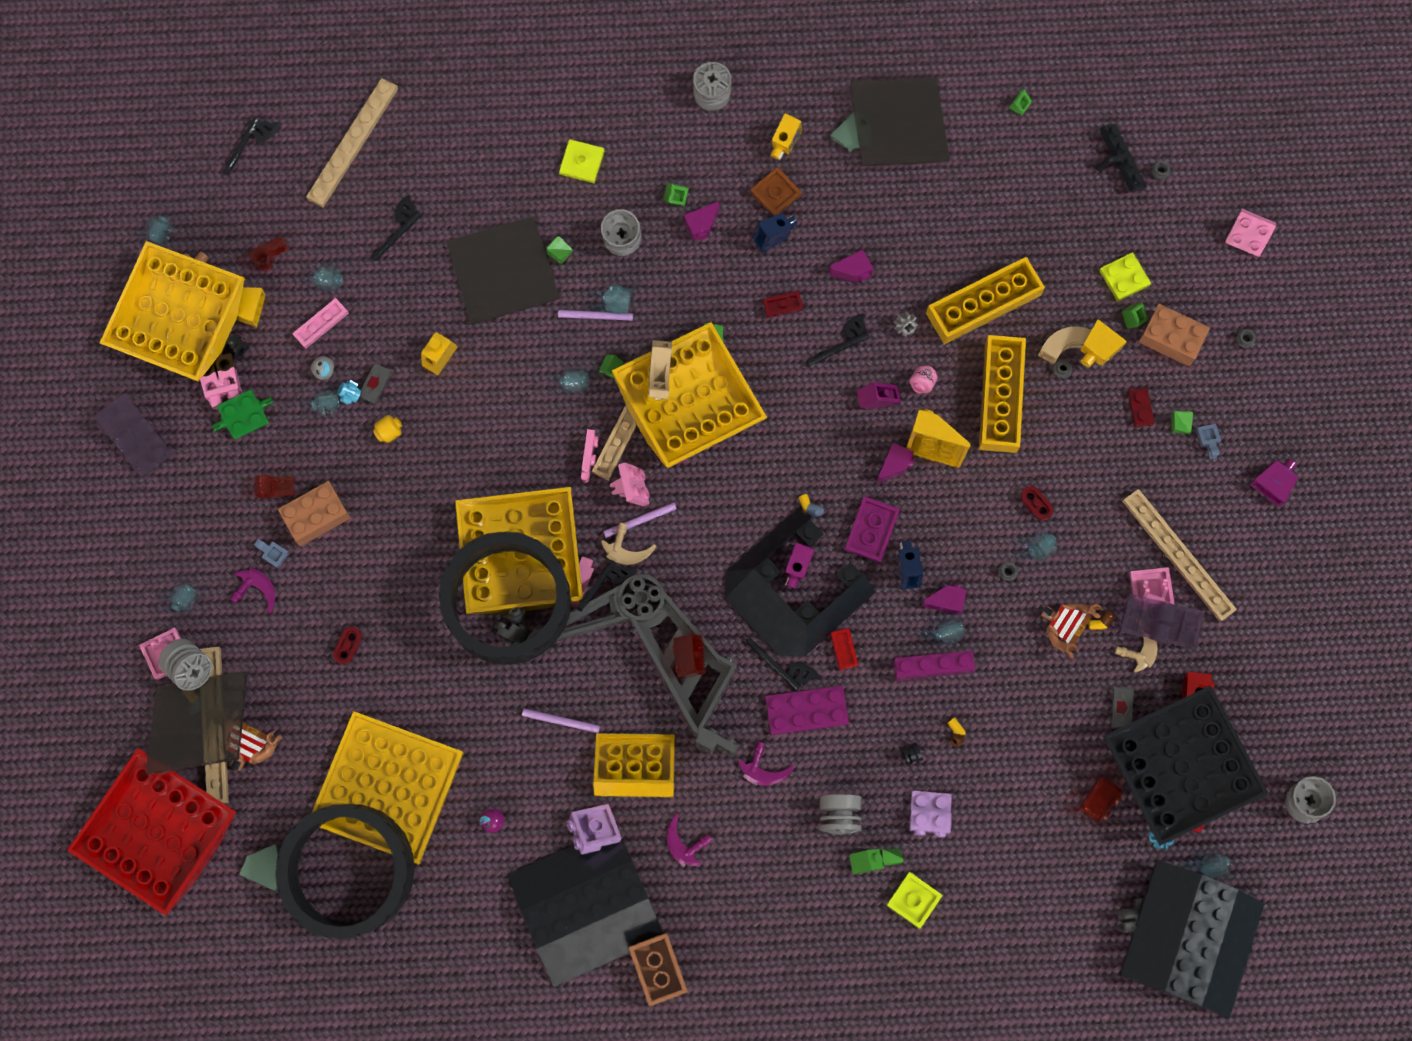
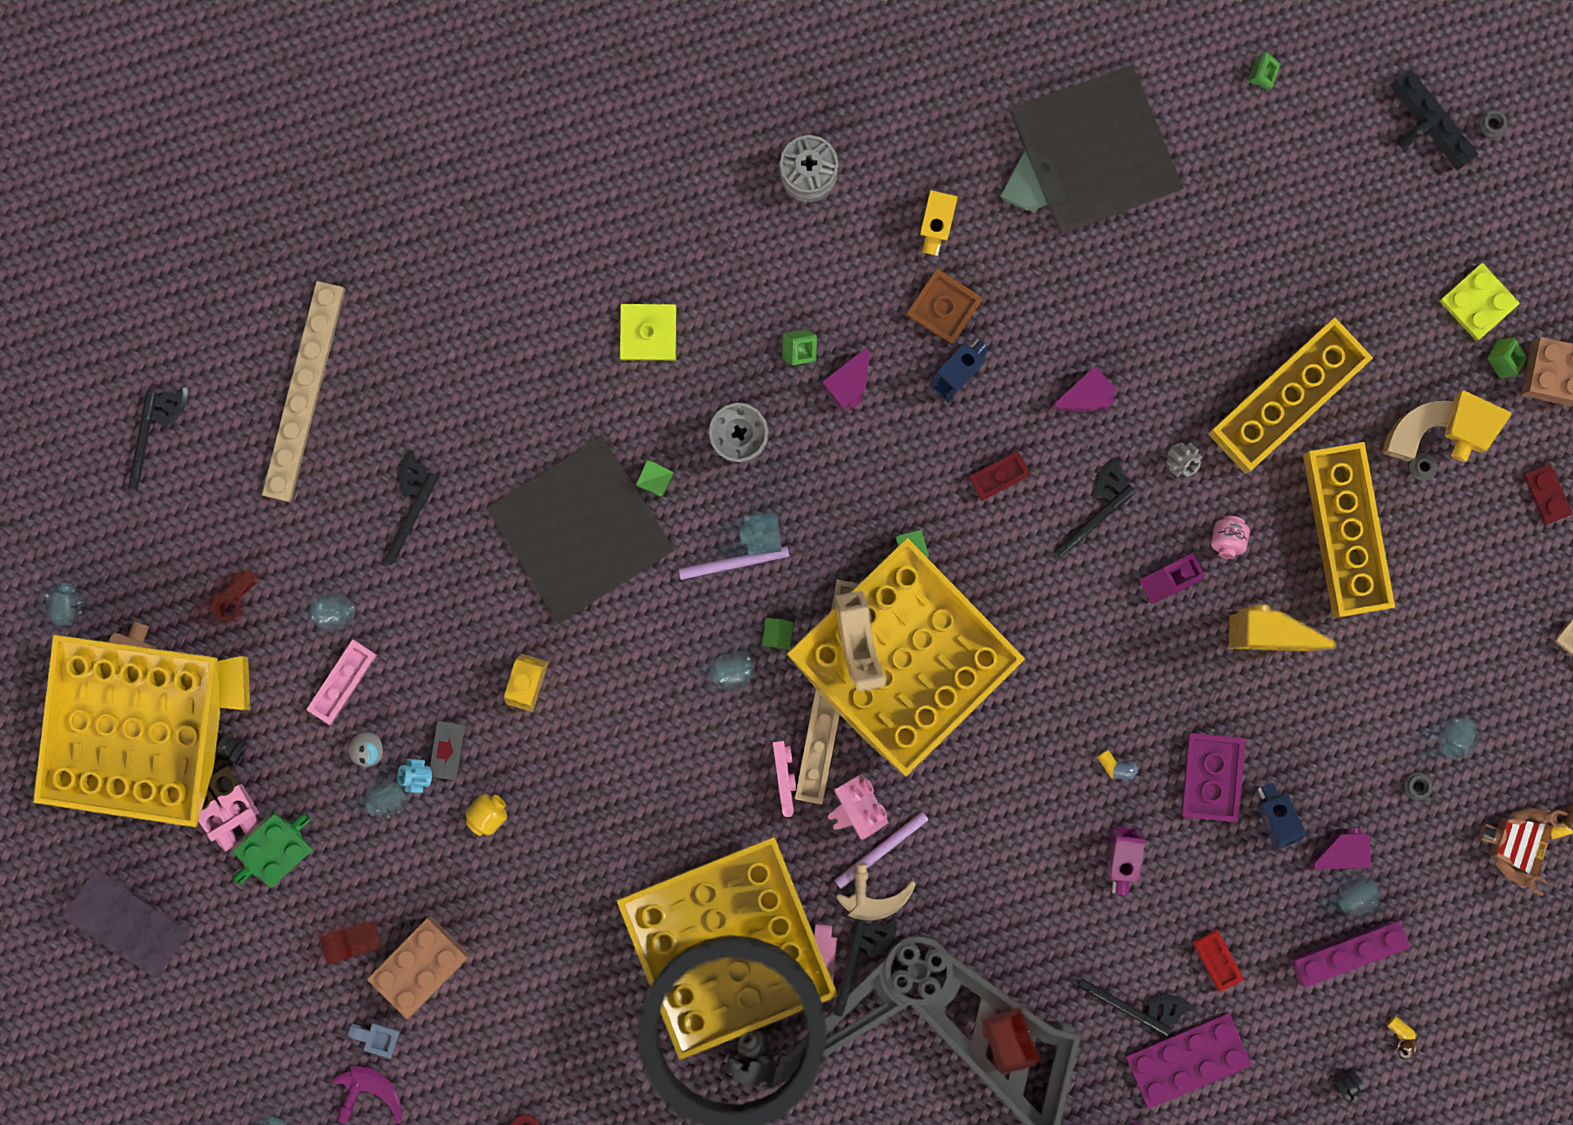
camera: 15 degrees left, 10 degrees up
(768, 614) = (1067, 919): black slope -> none
(896, 463) = (1222, 671): magenta slope -> none
(1038, 502) = (1434, 676): dark red plate -> none

